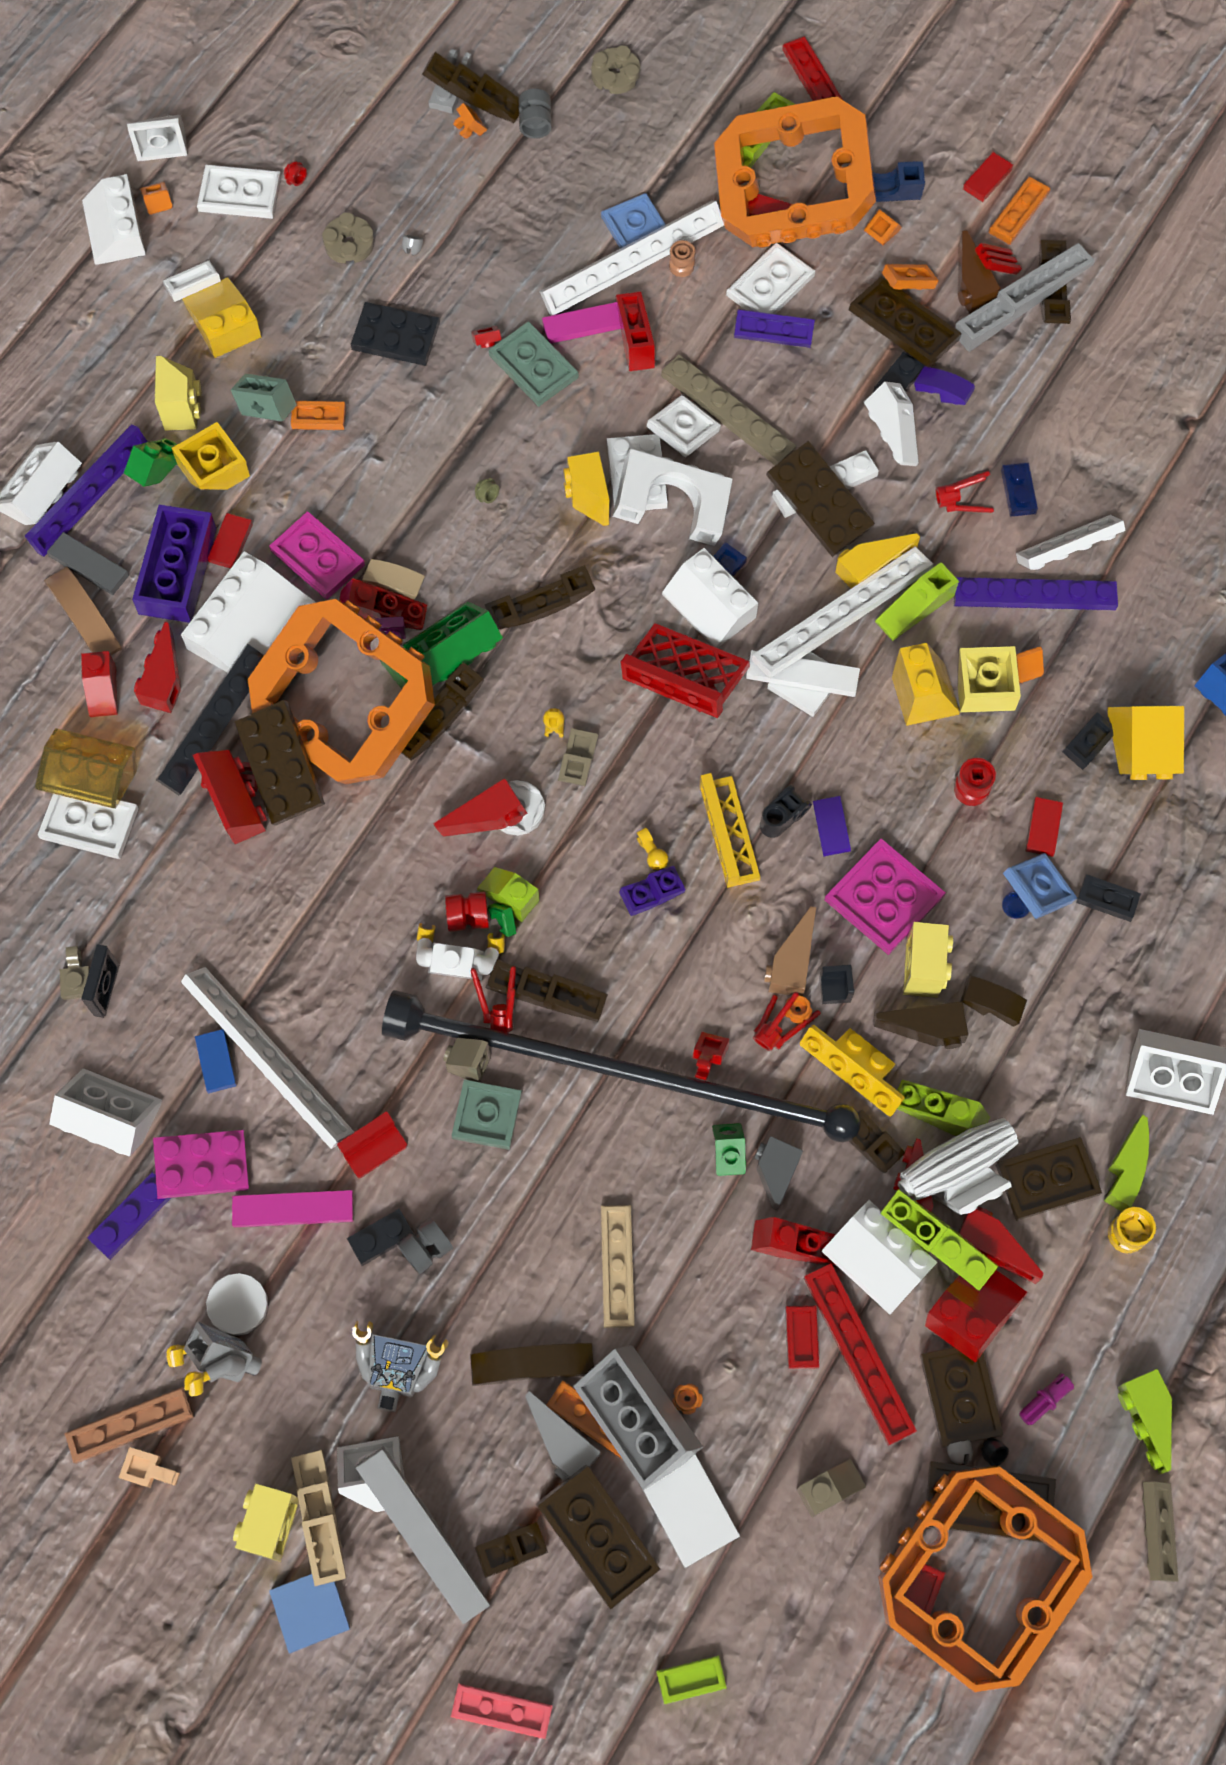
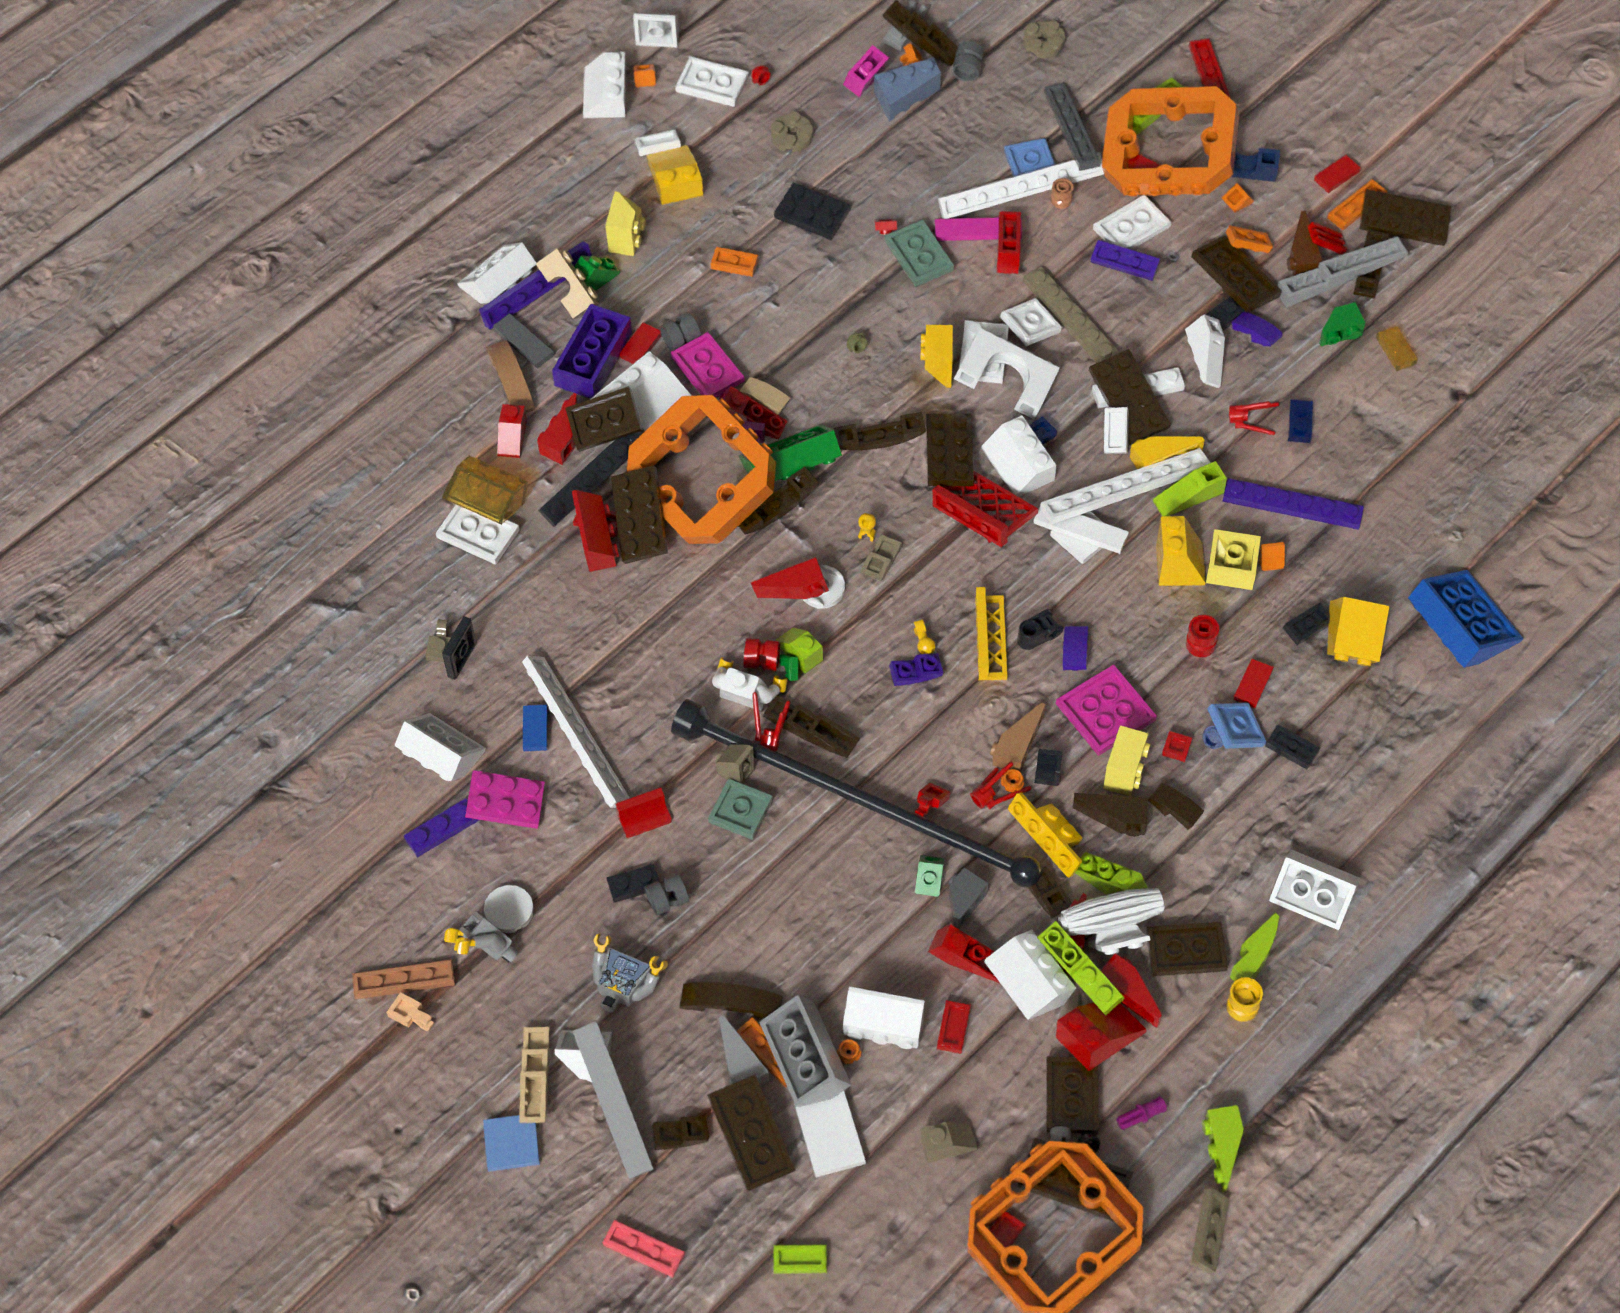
camera: 15 degrees right, 10 degrees down
(144, 495) = (559, 265): none -> tan arch
(209, 650) = (604, 419): none -> dark brown plate
(211, 459) = (640, 279): yellow slope -> none
(263, 397) = (693, 239): sand green brick -> none
(266, 1522) = (494, 1065): light yellow slope -> none
(274, 517) = (678, 332): none -> dark grey wheel
(292, 1208) = (569, 848): dark pink tile -> none
(412, 243) = (842, 145): light grey hinge -> none
(419, 147) = (863, 72): none -> dark pink brick
(470, 157) = (906, 85): none -> sand blue wedge
(617, 1266) = (817, 943): tan tile -> none
(627, 605) = (949, 449): none -> dark brown plate
(675, 174) = (1072, 127): none -> dark grey tile
(721, 1352) = (883, 1018): none -> white slope
(815, 543) = (1116, 430): none -> white tile
(860, 1354) = (997, 1048): red plate -> none
(977, 925) = (1177, 746): none -> red plate
(1042, 360) = (1342, 325): none -> green slope
(1074, 540) = (1341, 468): white plate -> none
(1078, 216) = (1405, 217): none -> dark brown plate
(1105, 379) = (1396, 348): none -> clear yellow plate

